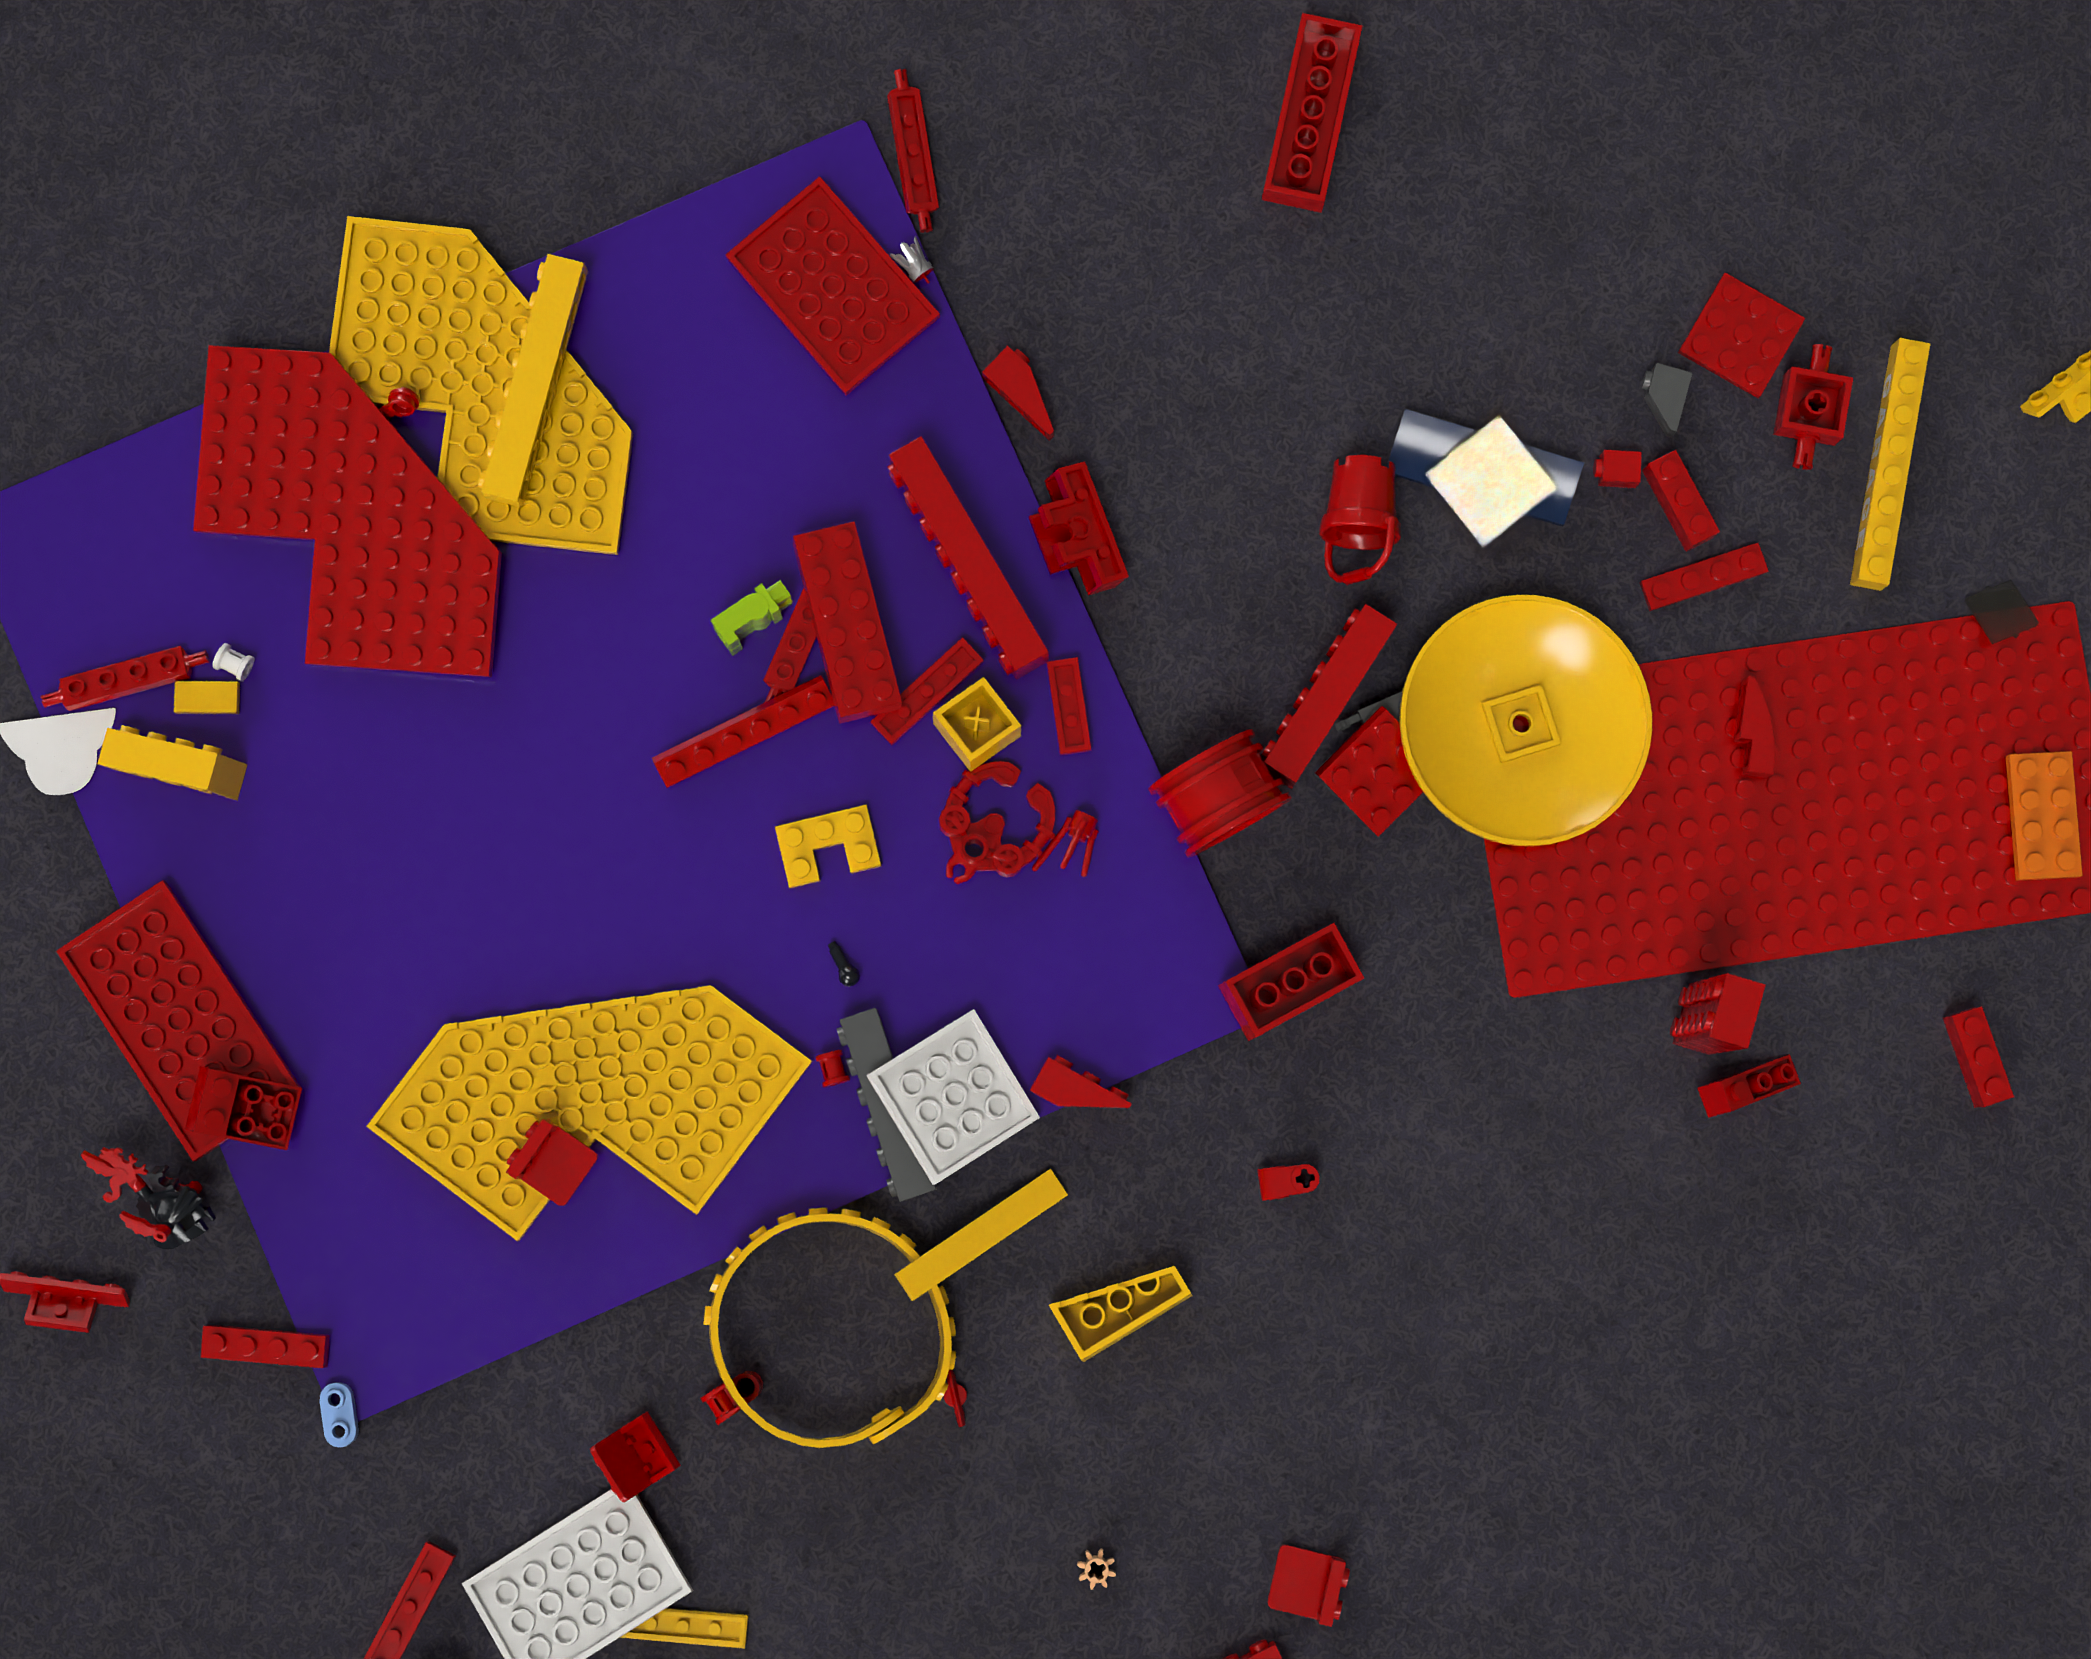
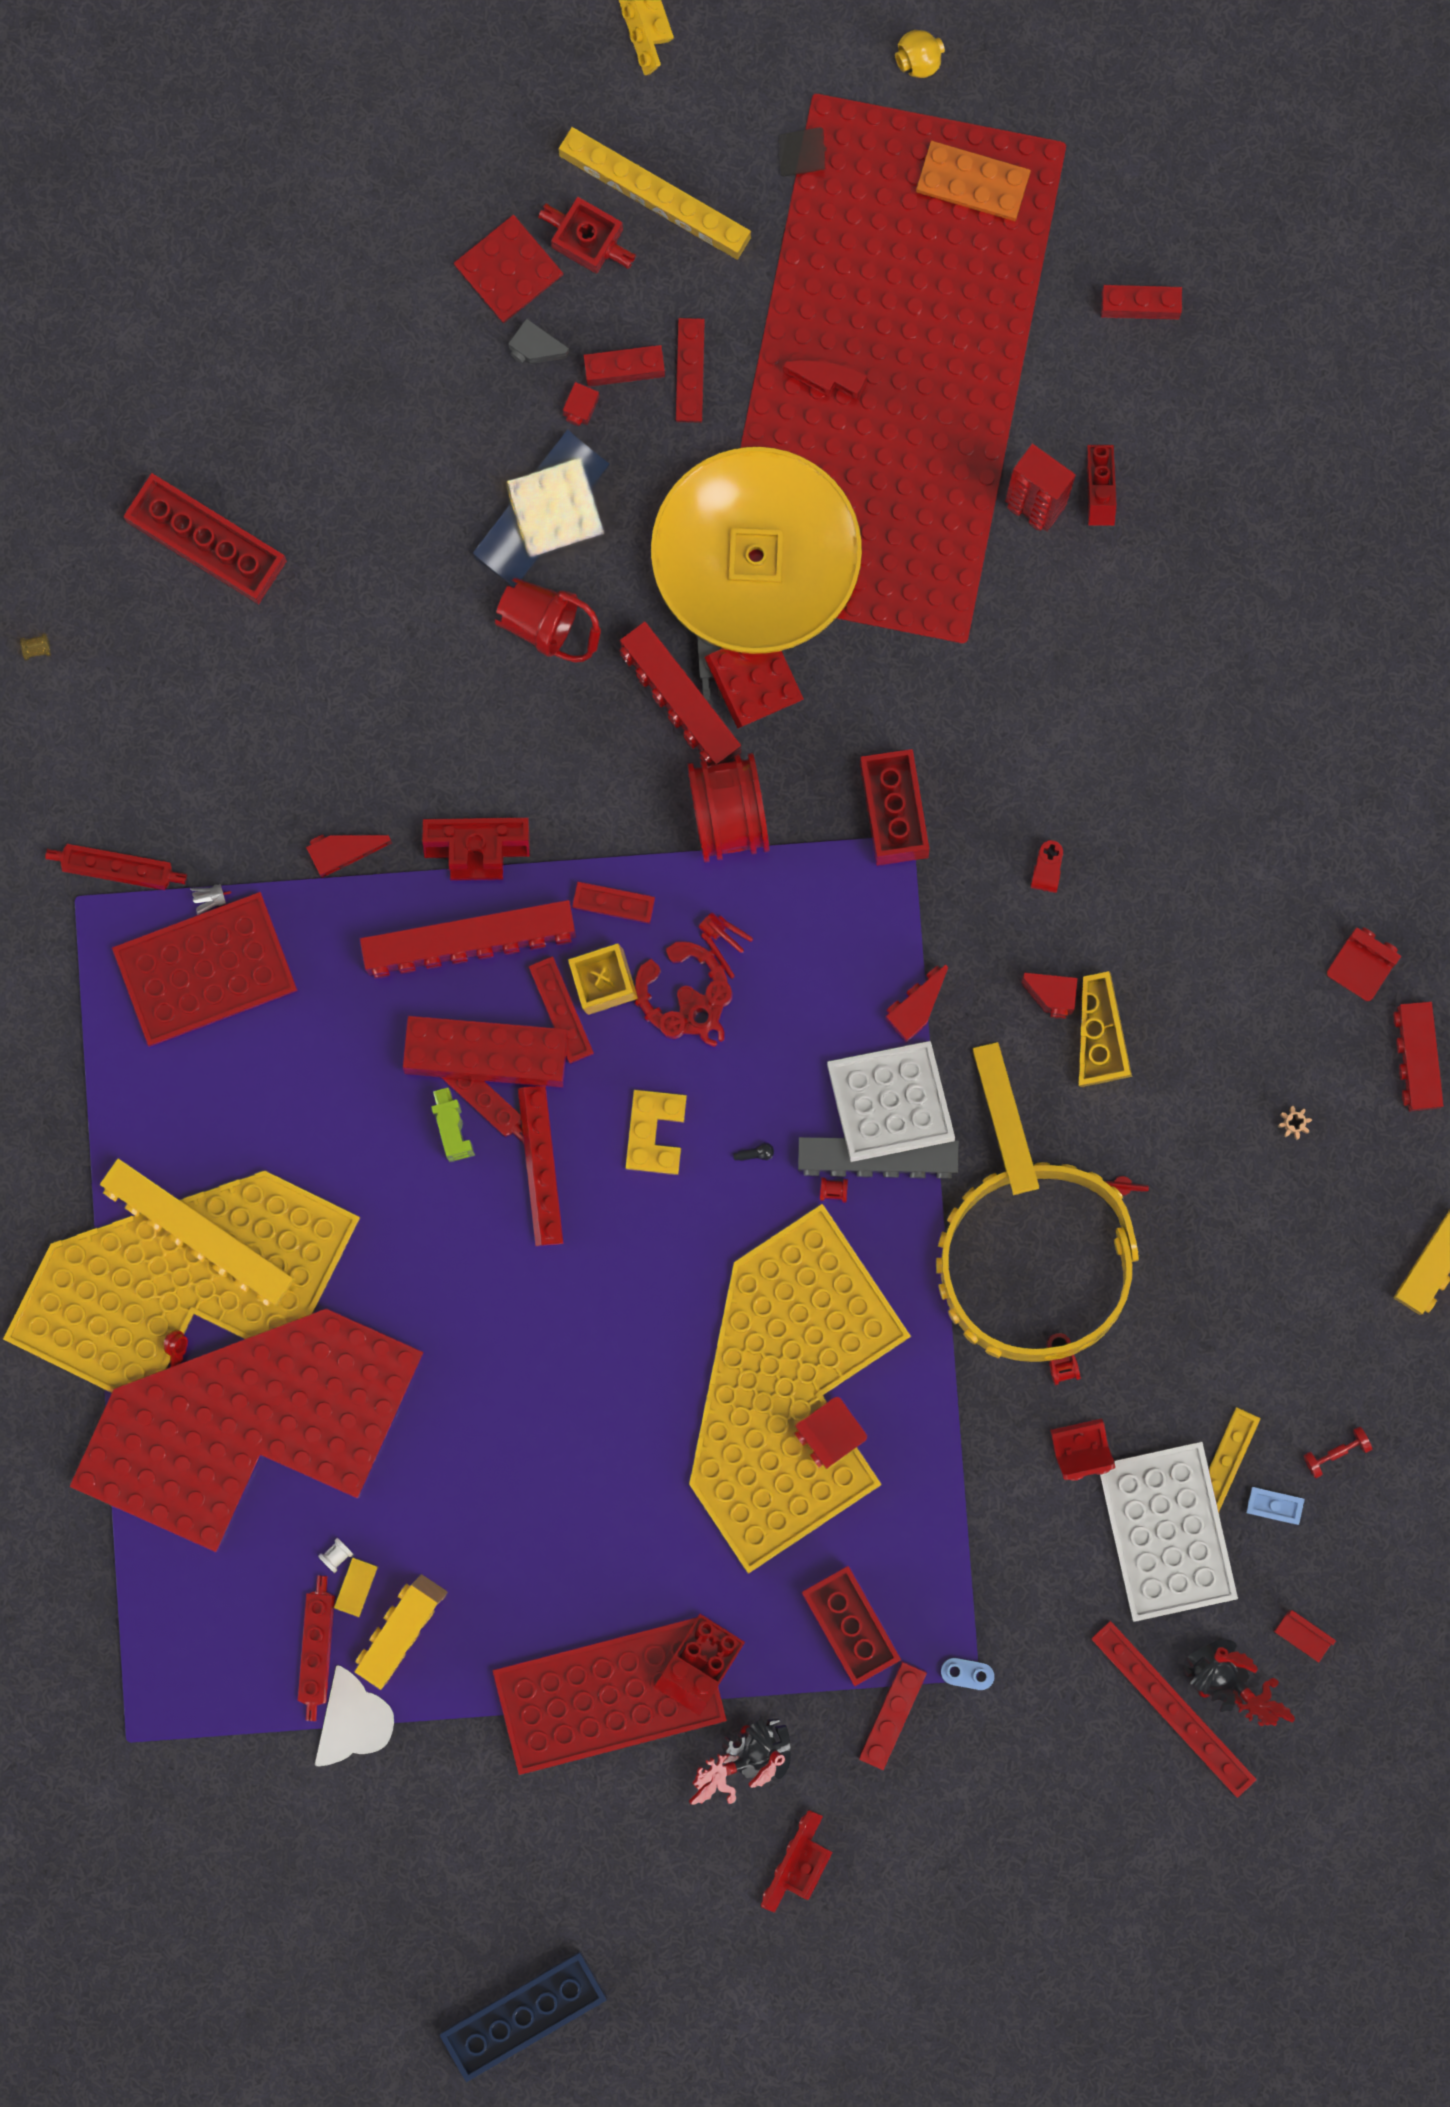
camera: 70 degrees left, 0 degrees up
(344, 1263) = (851, 1626): none -> red brick
(1143, 1238) = (1052, 993): none -> red slope

